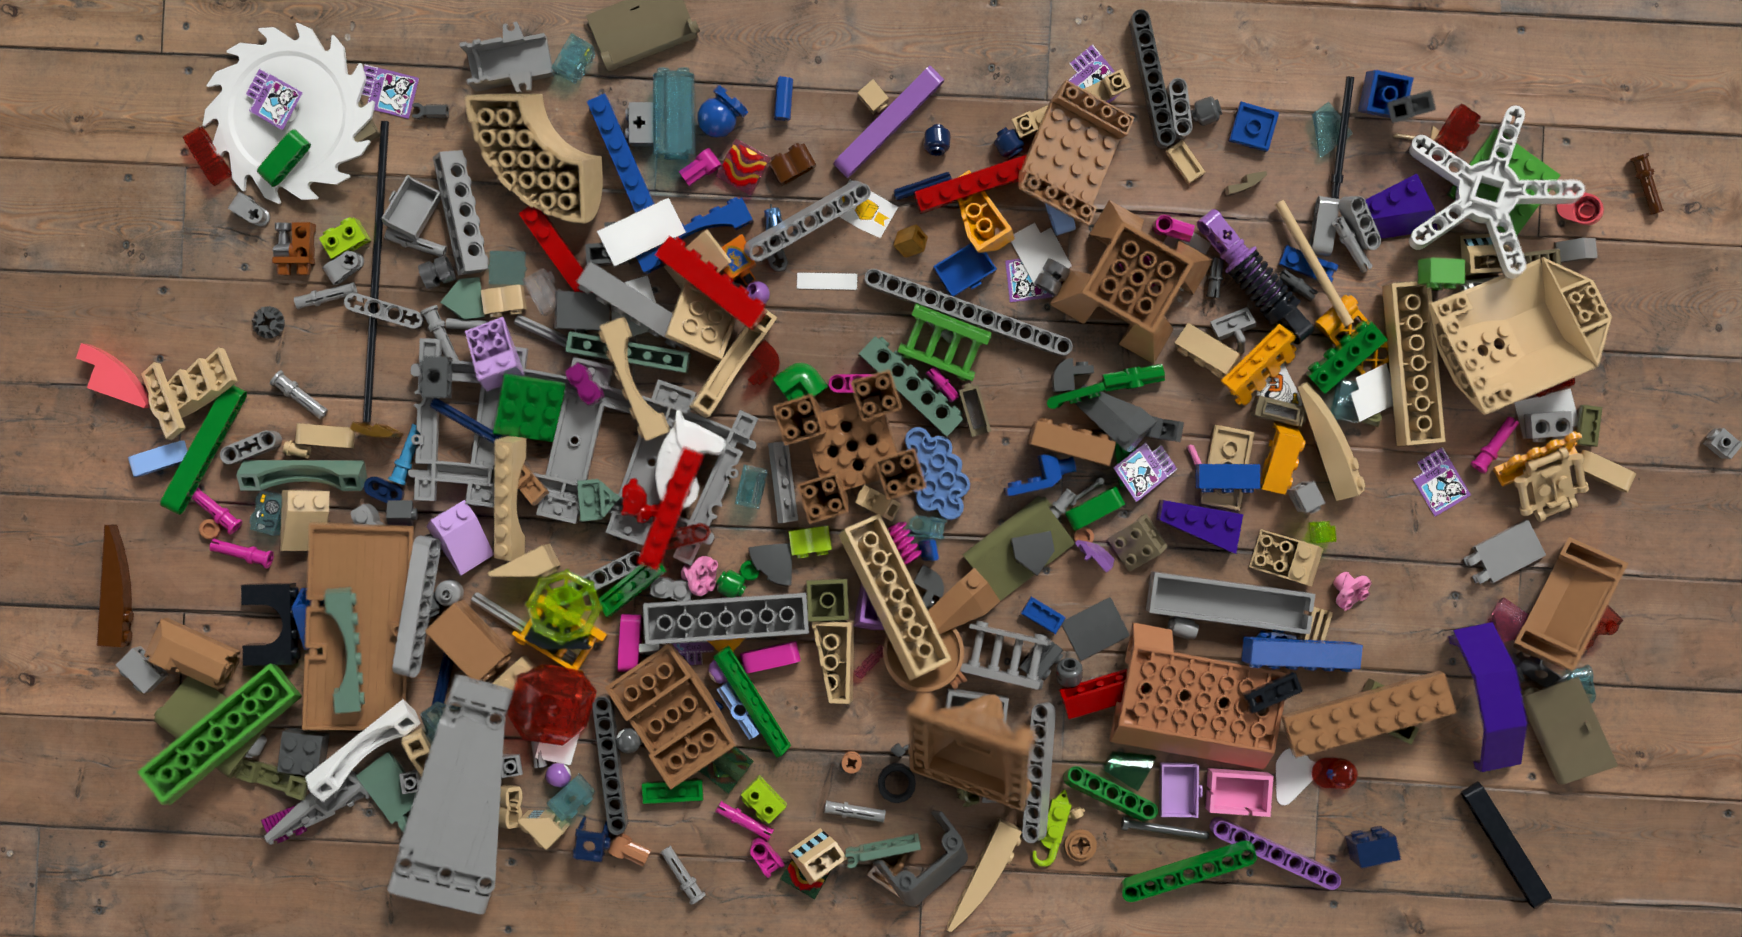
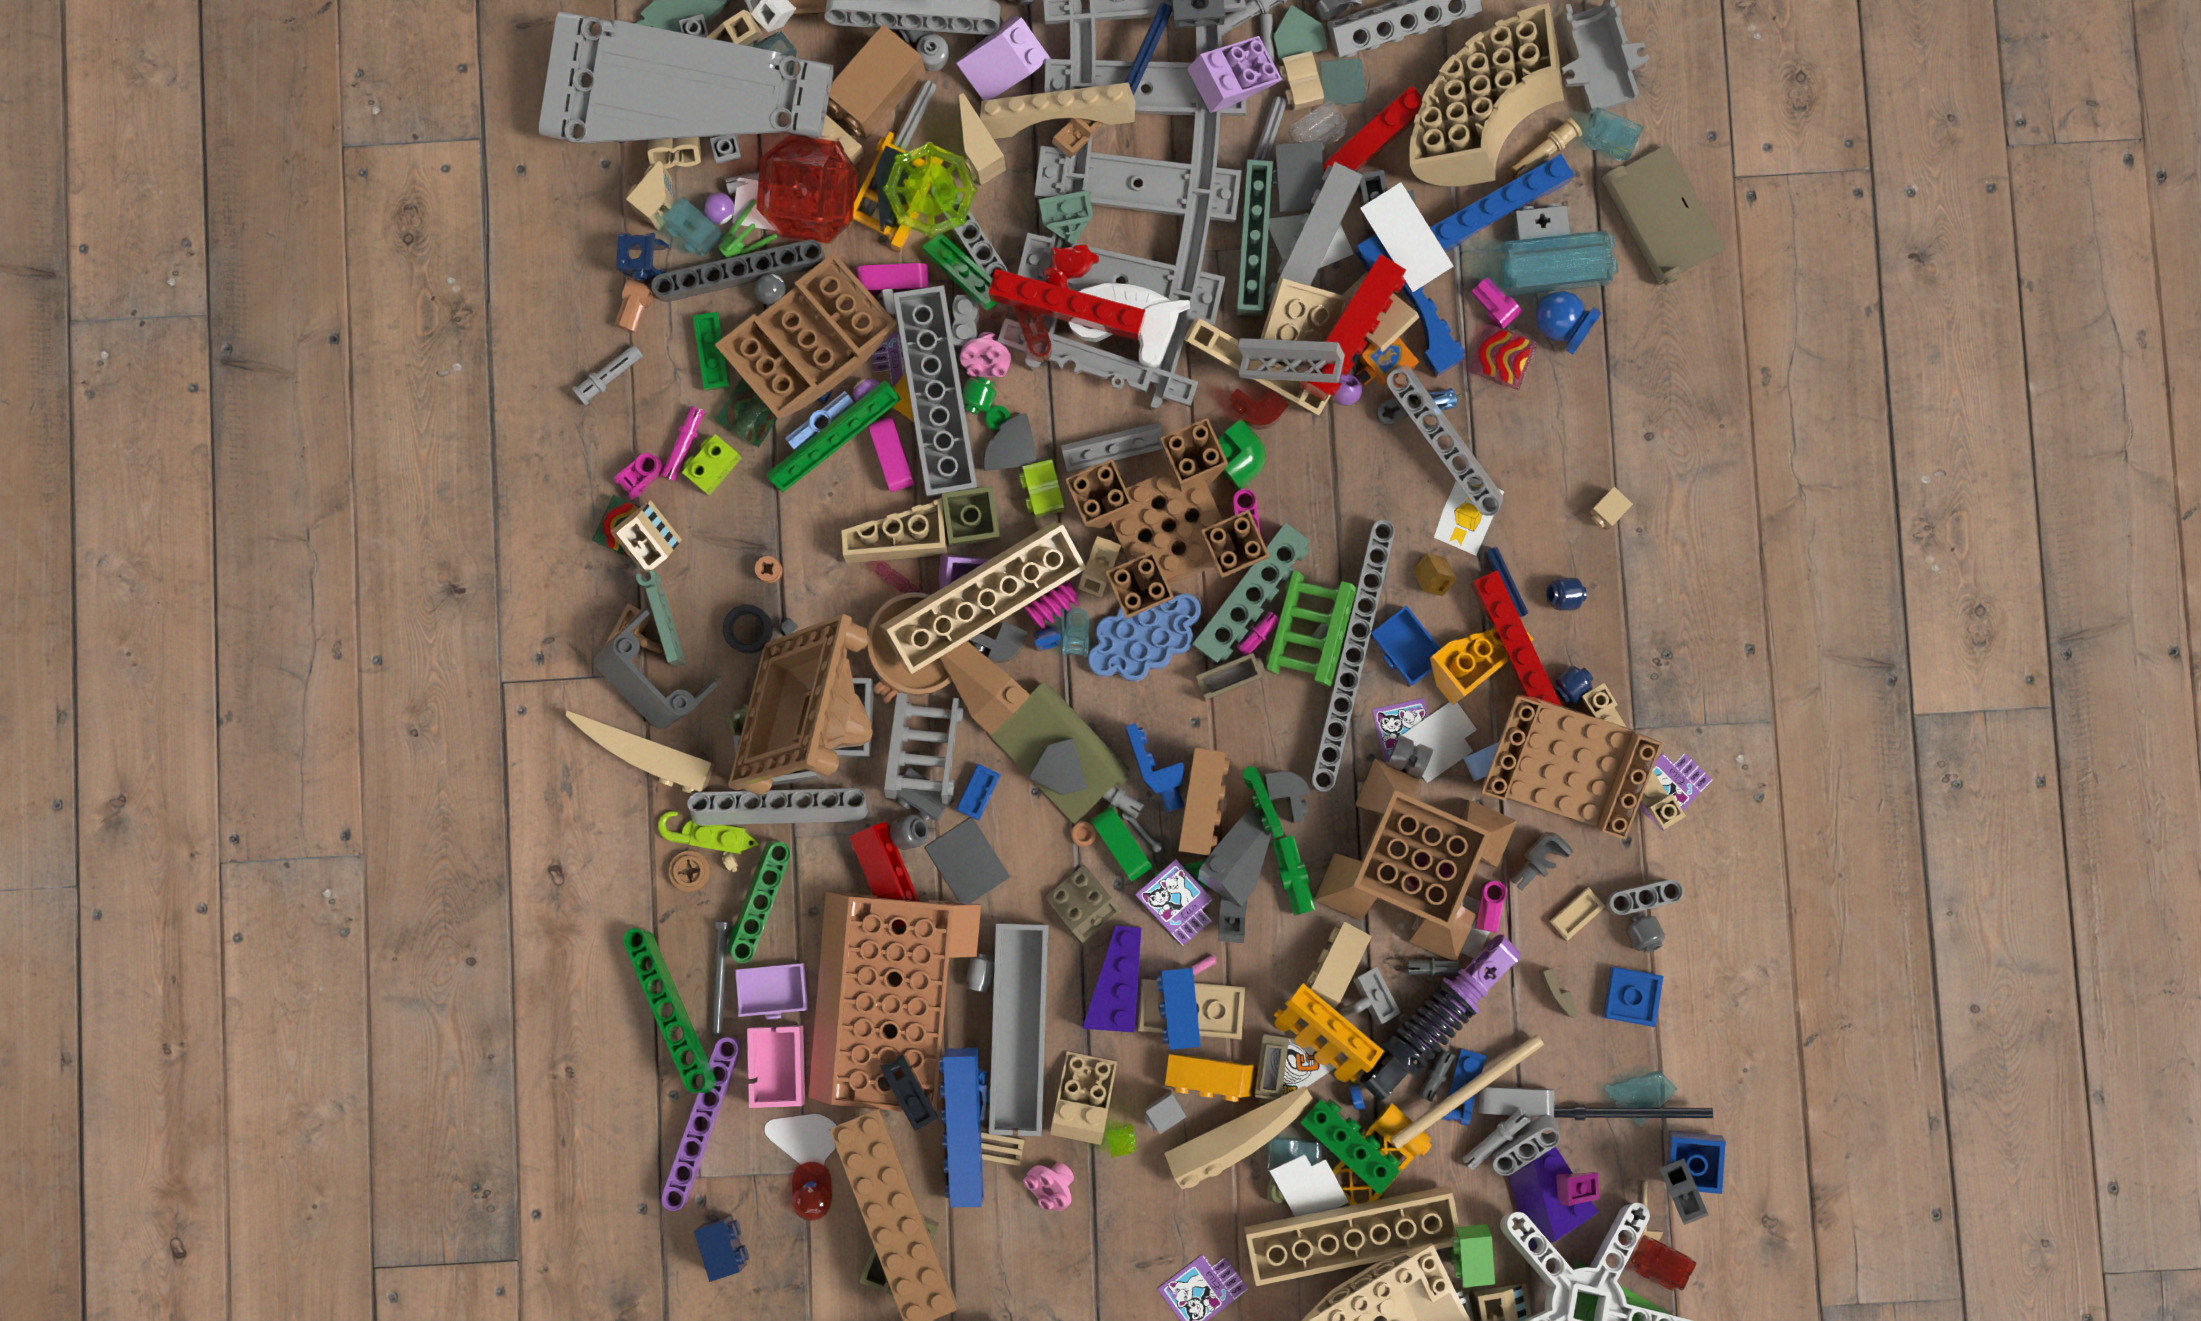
camera: 90 degrees right, 5 degrees down
(443, 679) = (835, 58): dark blue axle -> none
(528, 407) = (1172, 121): green plate -> none
(573, 104) = (1555, 141): none -> tan pin
(587, 389) = (1214, 183): magenta brick -> none
(588, 766) = (733, 244): none -> bright green plant
(617, 336) = (1270, 219): tan arch -> none
(727, 334) = (1290, 351): none -> light grey fence
(751, 486) = (1103, 407): clear light blue brick -> none
(783, 98) = (1594, 397): blue brick -> none
(792, 164) = (1514, 416): reddish brown brick -> none
(827, 281) = (1372, 476): white sticker -> none
(854, 811) = (706, 579): light grey pin -> none
(888, 121) = (1582, 531): medium lavender beam -> none
(1097, 552) = (1064, 851): medium lavender slope -> none
(1129, 767) = (794, 923): clear green slope -> none
(1142, 189) = (1536, 860): none -> dark grey piece
(1155, 70) = (1689, 856): dark grey beam -> none
(1307, 347) = (1357, 1096): none -> blue tile
(1399, 187) = (1577, 1187): none -> magenta slope

